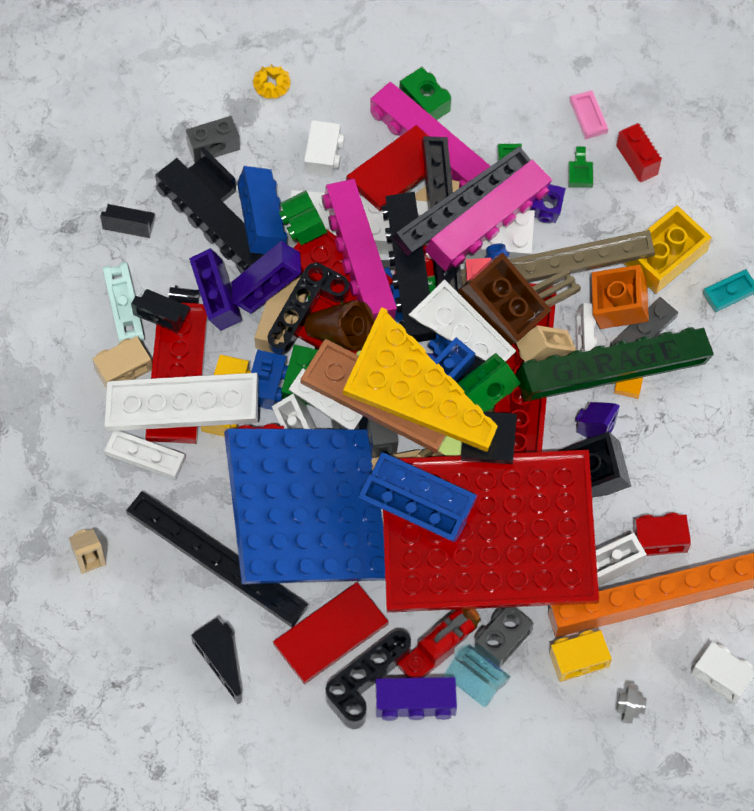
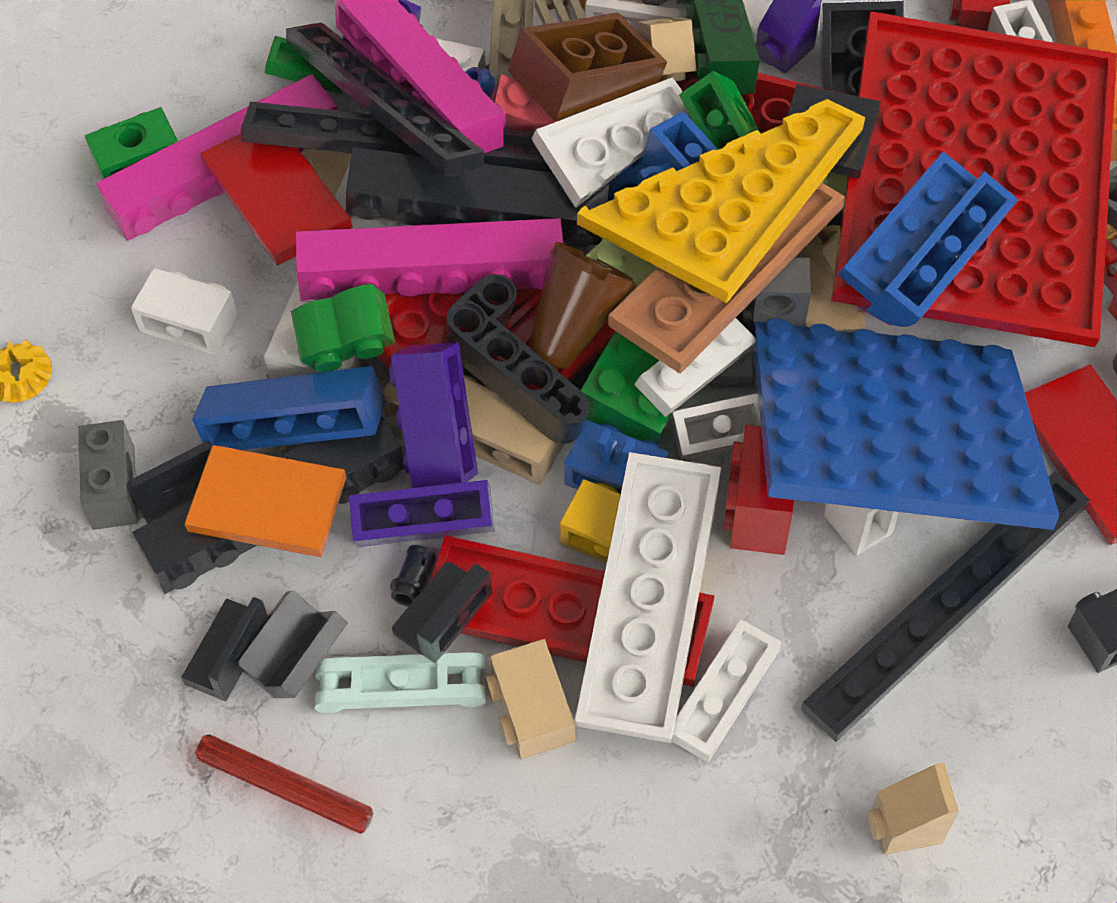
camera: 75 degrees left, 5 degrees down
(60, 264) = (284, 783): none -> clear red axle
(132, 246) = (289, 645): none -> panel
(203, 212) = (266, 501): none -> orange tile

